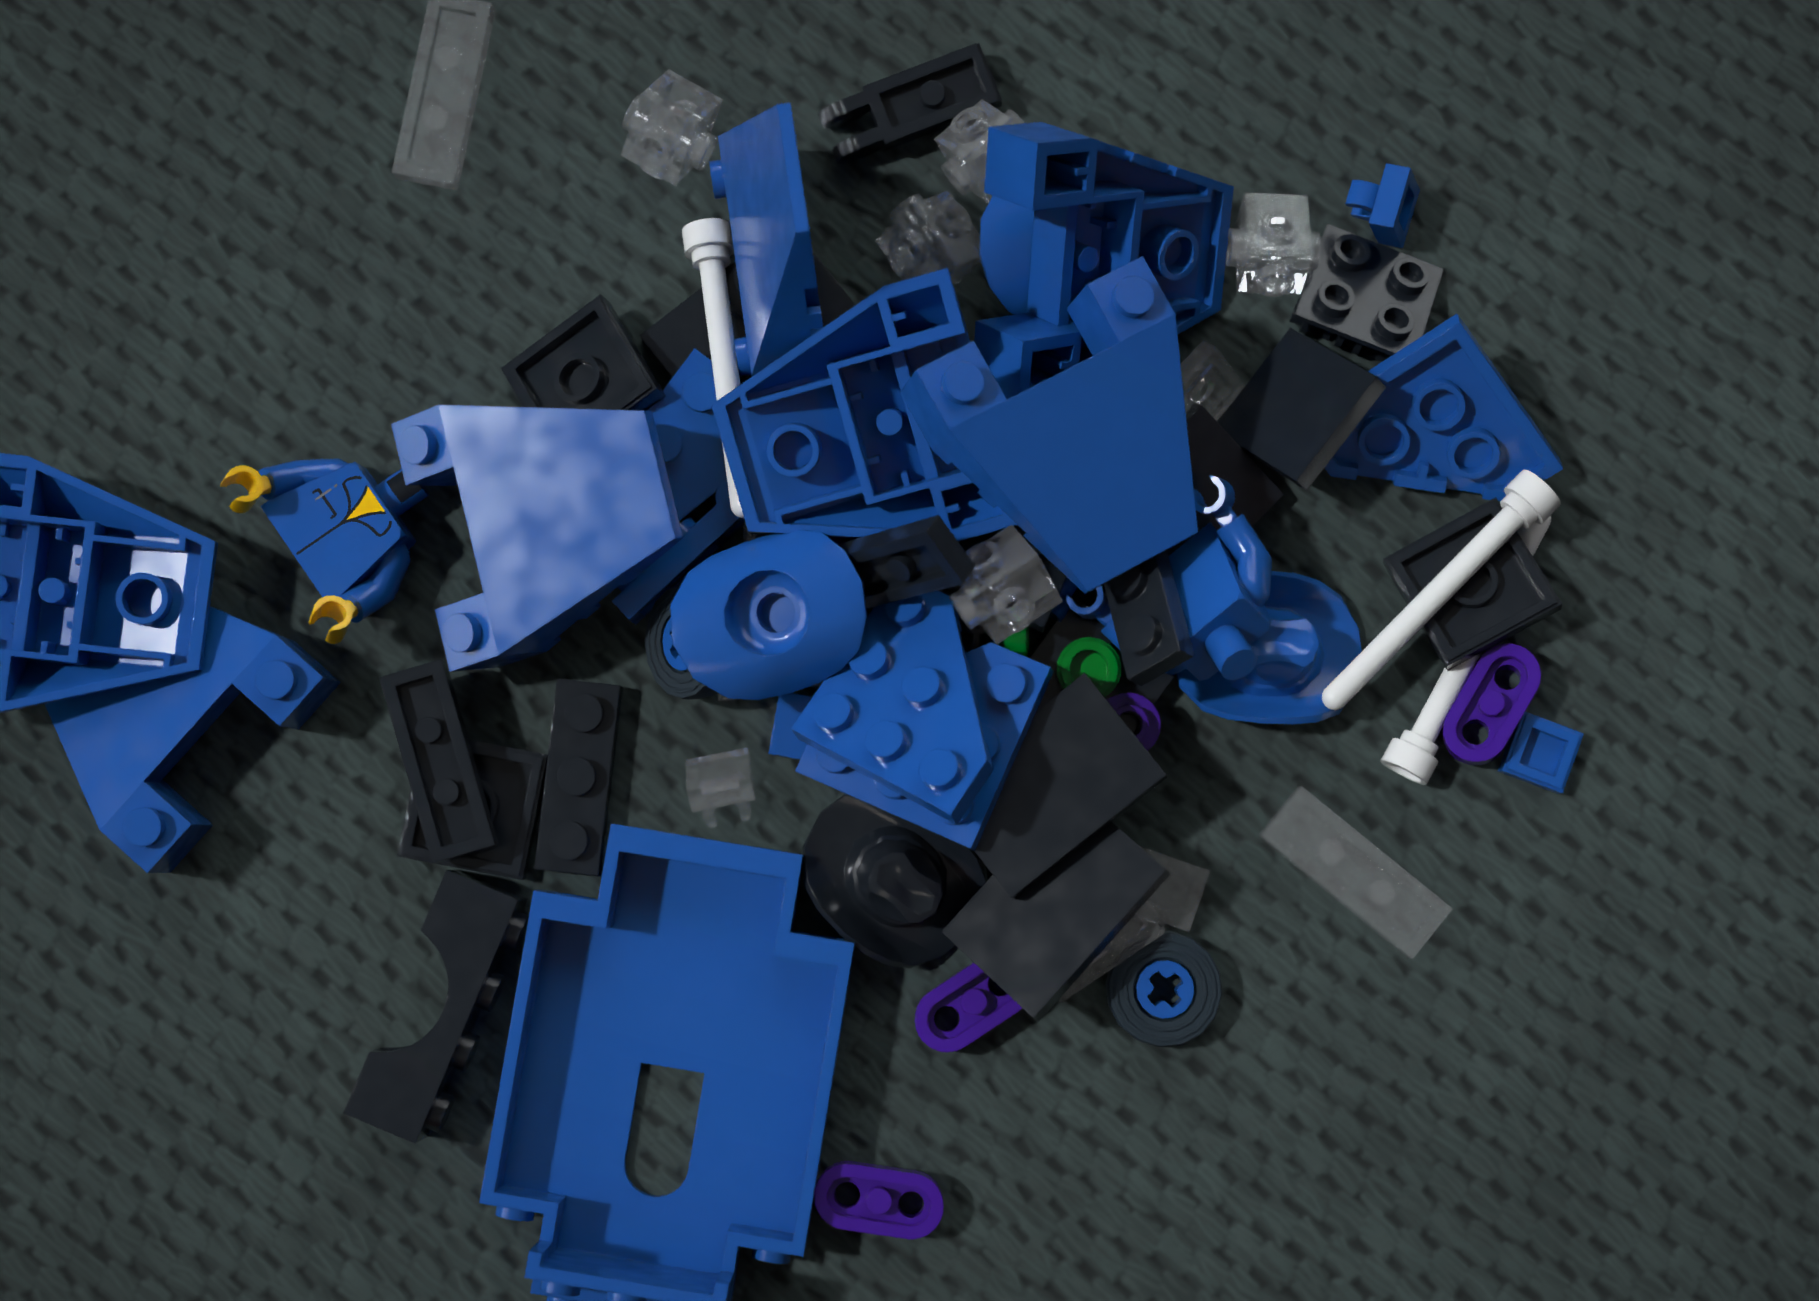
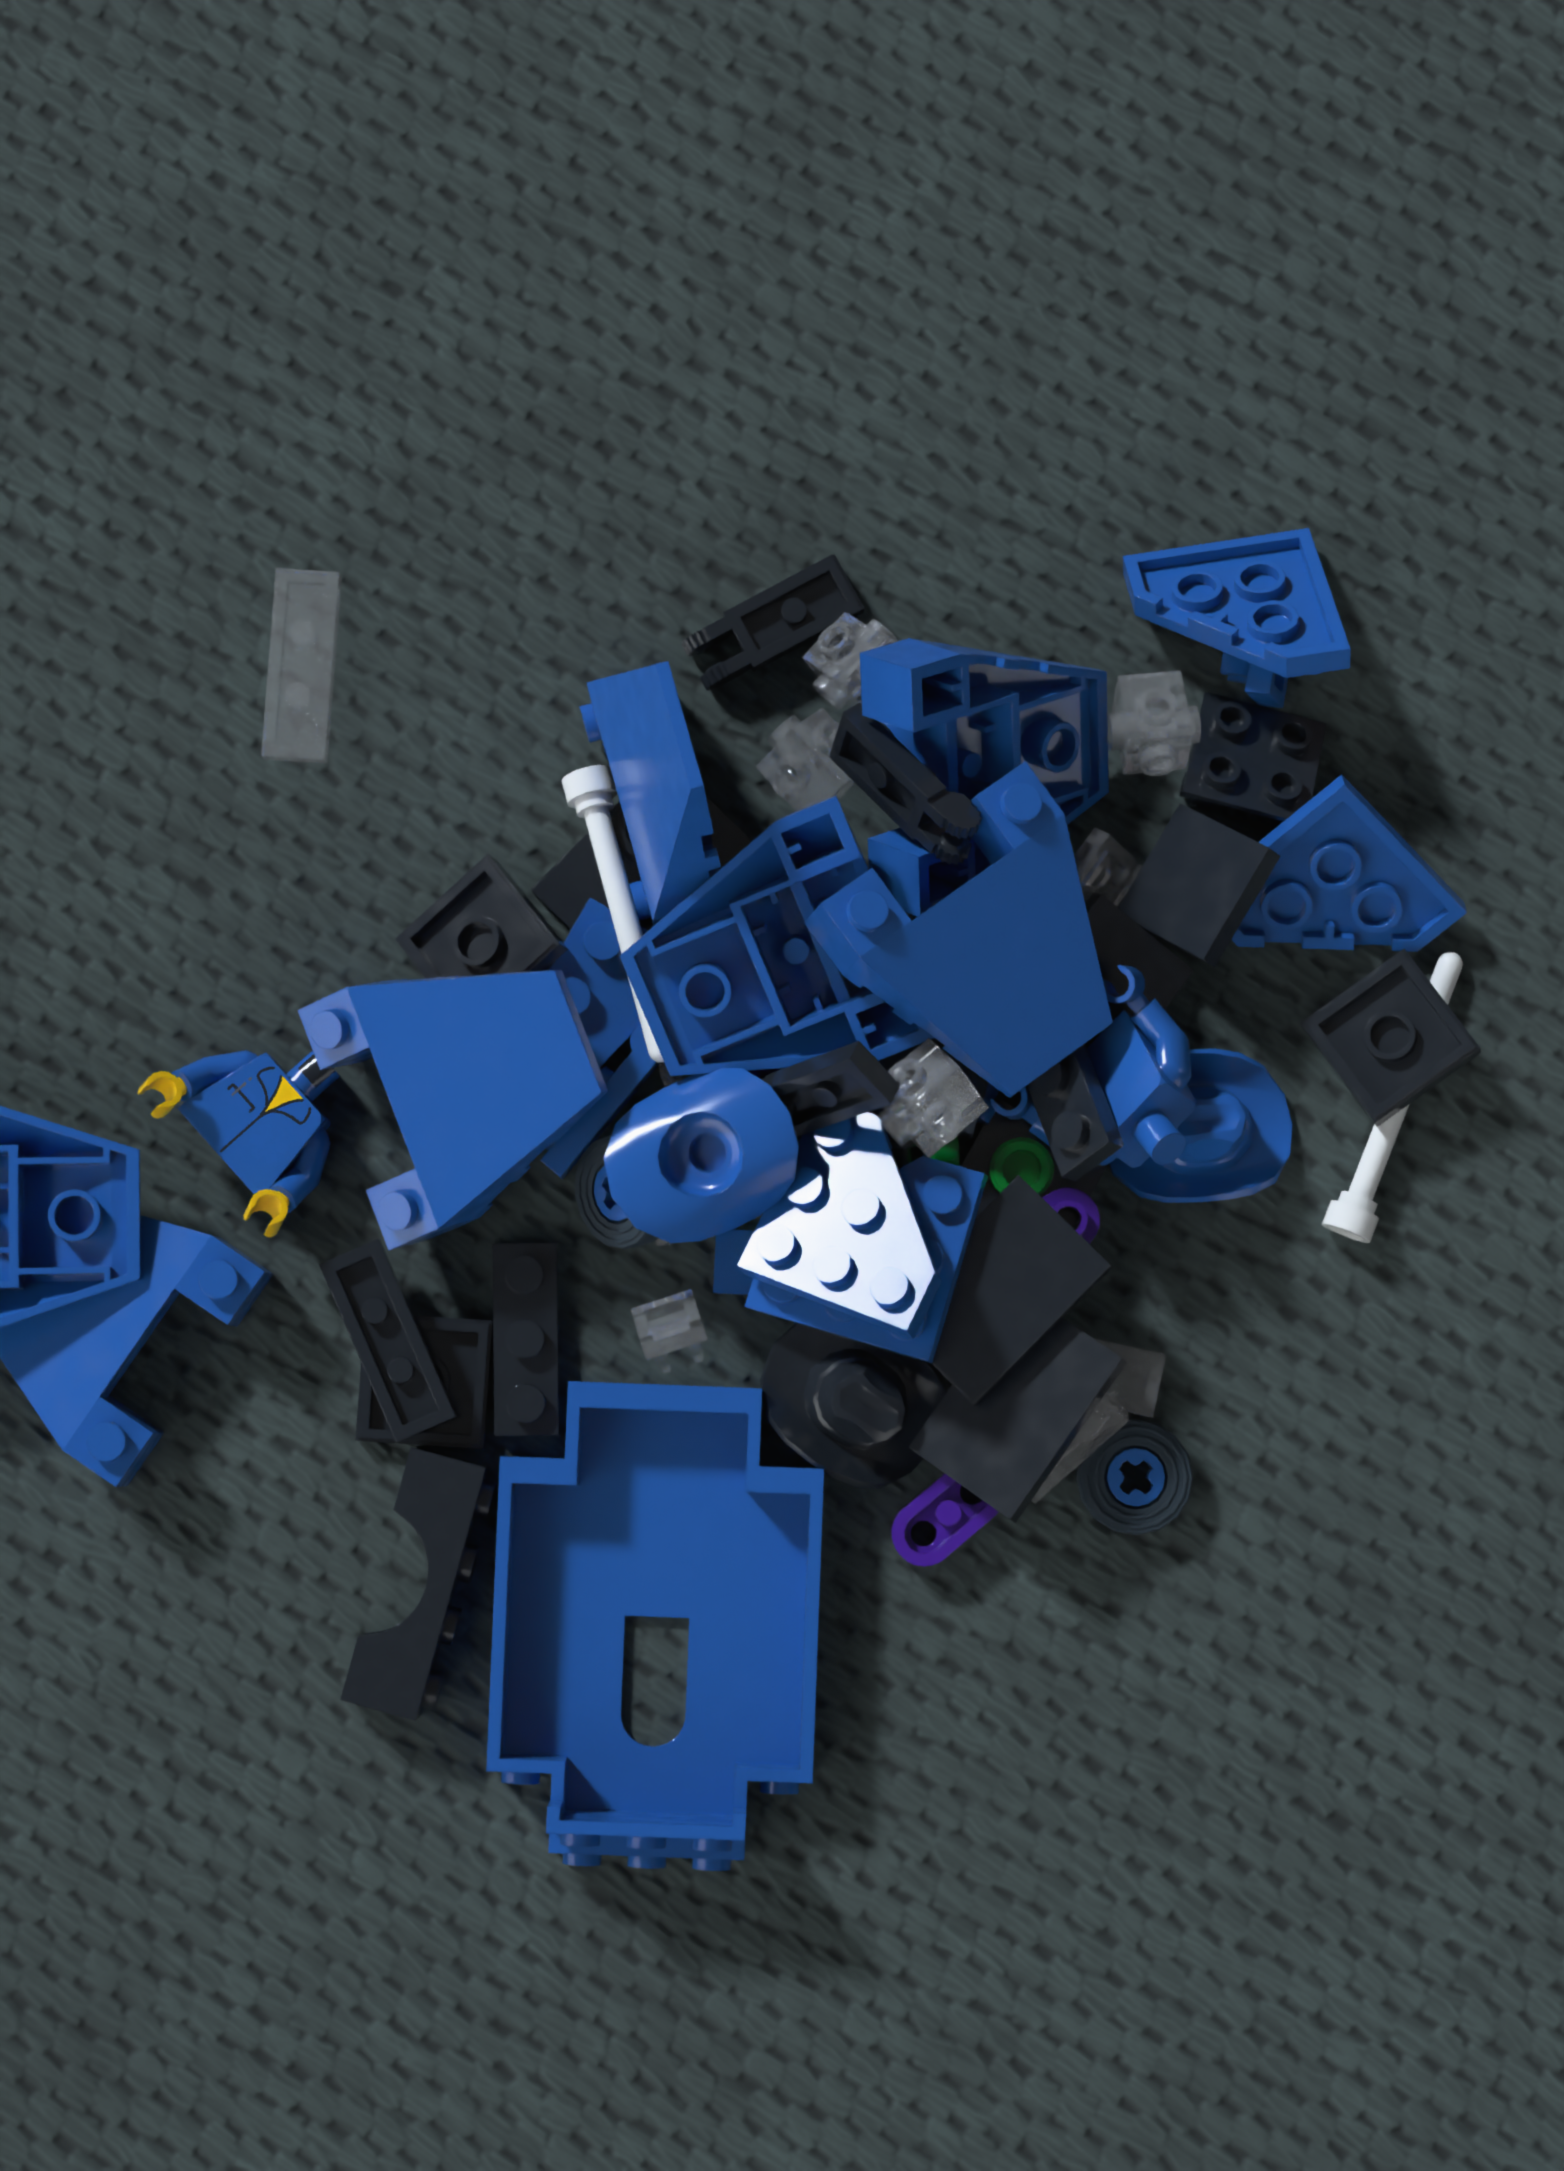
camera: 15 degrees left, 0 degrees up
(671, 128) = (537, 678): clear brick -> none
(878, 1205) = (878, 1720): dark purple plate -> none
(1018, 270) = (904, 787): none -> black hinge
(1355, 872) = (1309, 1338): clear plate -> none
(1381, 131) = (1246, 598): none -> blue plate
(1489, 705) = (1424, 1156): dark purple plate -> none
(1526, 502) = (1432, 952): white piece -> none
(1541, 753) = (1479, 1196): blue tile -> none

